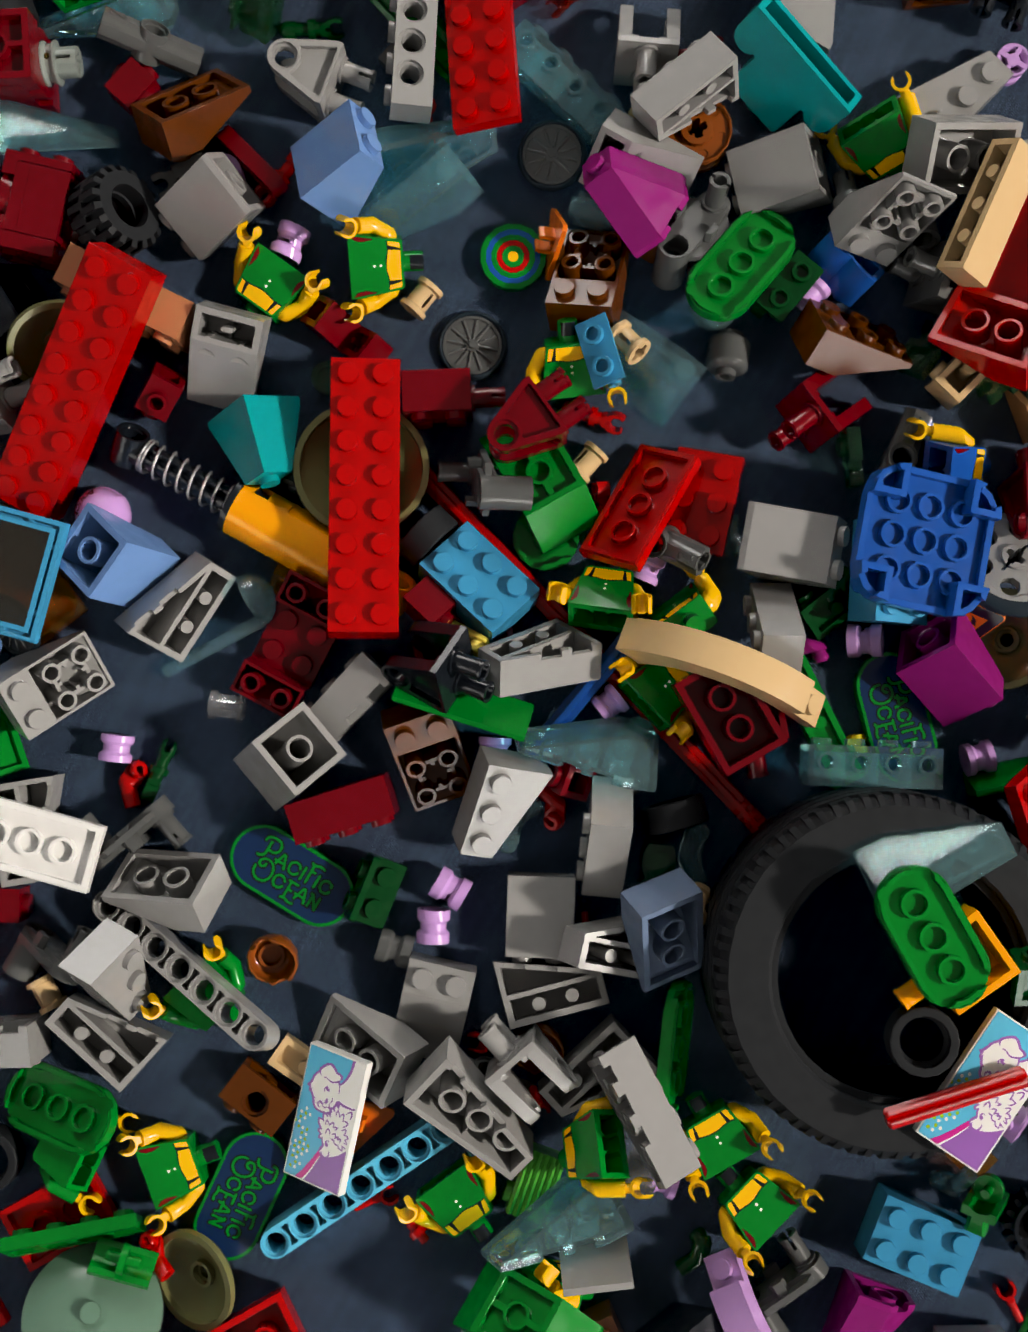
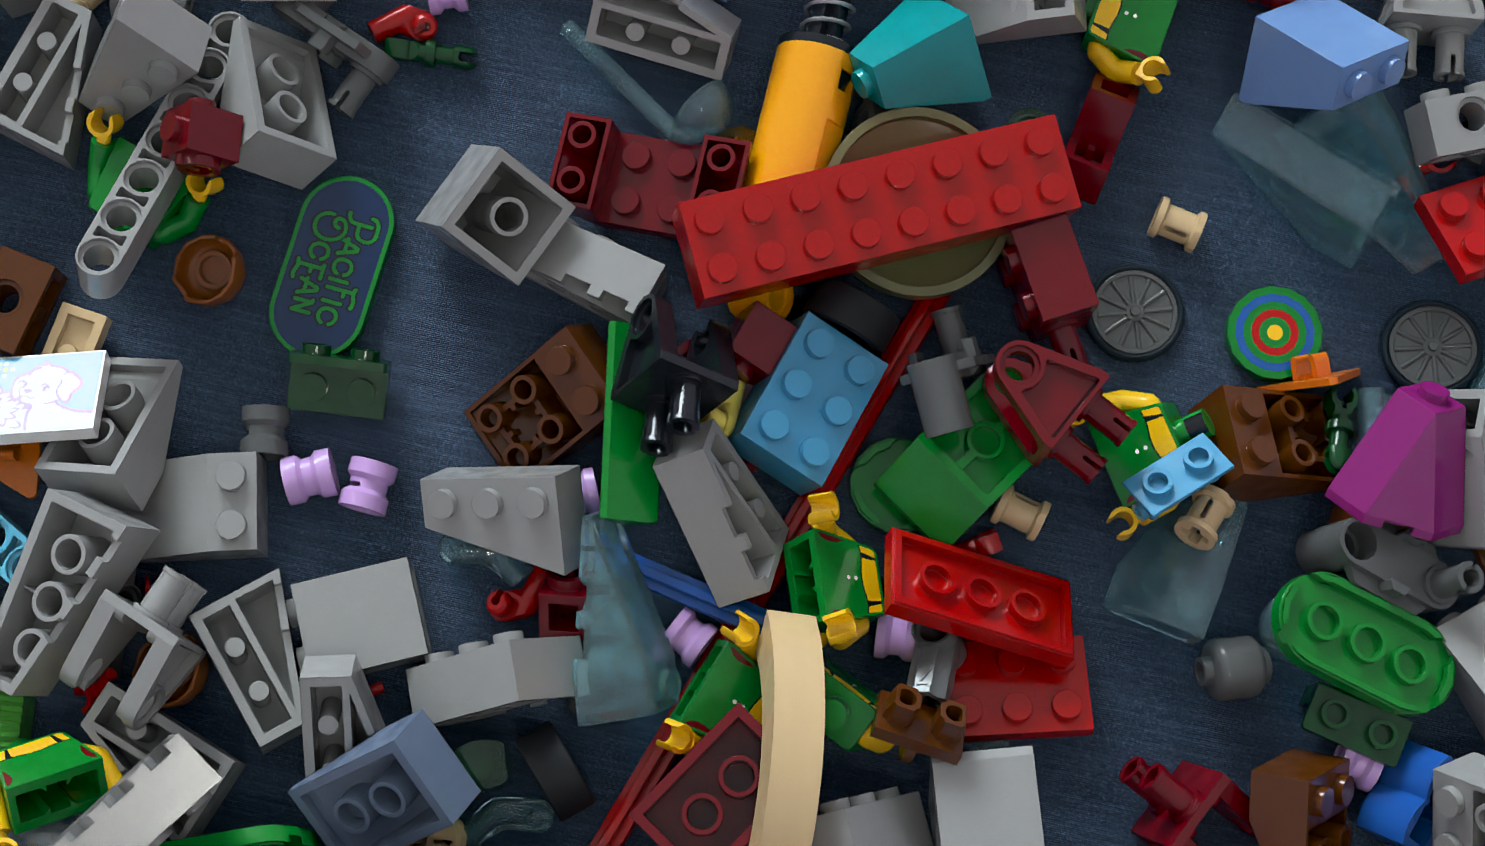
camera: 70 degrees right, 10 degrees down
(185, 944) = (201, 137): none -> dark red brick
(226, 706) = (541, 117): clear bush -> none
(290, 242) = (1196, 31): lavender wheel -> none
(342, 810) = (440, 306): dark red brick -> none
(375, 264) = (1203, 146): torso -> none
(594, 234) = (1338, 428): none -> dark green piece
(603, 419) = (1087, 506): red piece -> none
(717, 571) = (919, 727): none -> reddish brown hips

